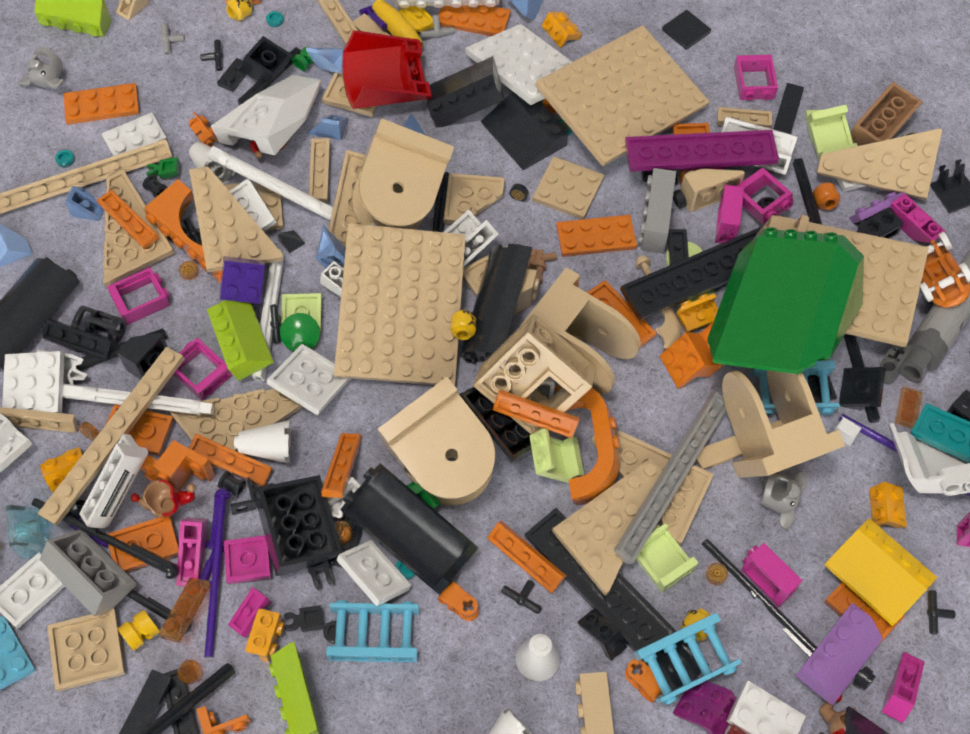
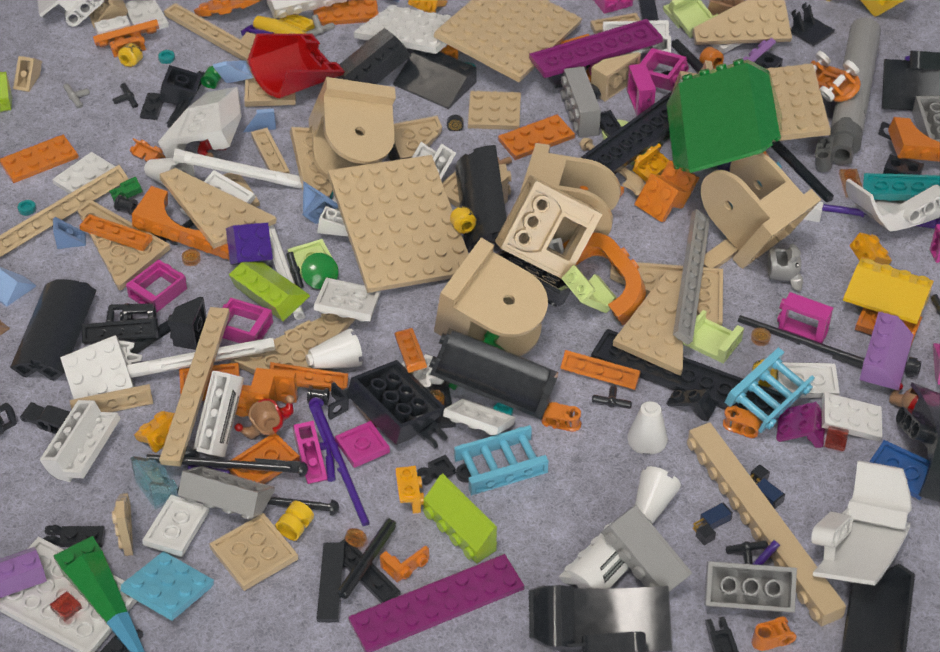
camera: 20 degrees left, 15 degrees down
(88, 431) = (166, 396): clear orange tile -> none
(184, 610) = (329, 491): clear orange plate -> none
(246, 613) = (385, 478): dark pink plate -> none
(290, 240) = (273, 210): black slope -> none
(535, 413) = (561, 255): orange tile -> none
(751, 648) = (824, 381): none -> white plate
(862, 387) = (809, 174): black tile -> none
(917, 222) = (790, 53): dark pink slope -> none

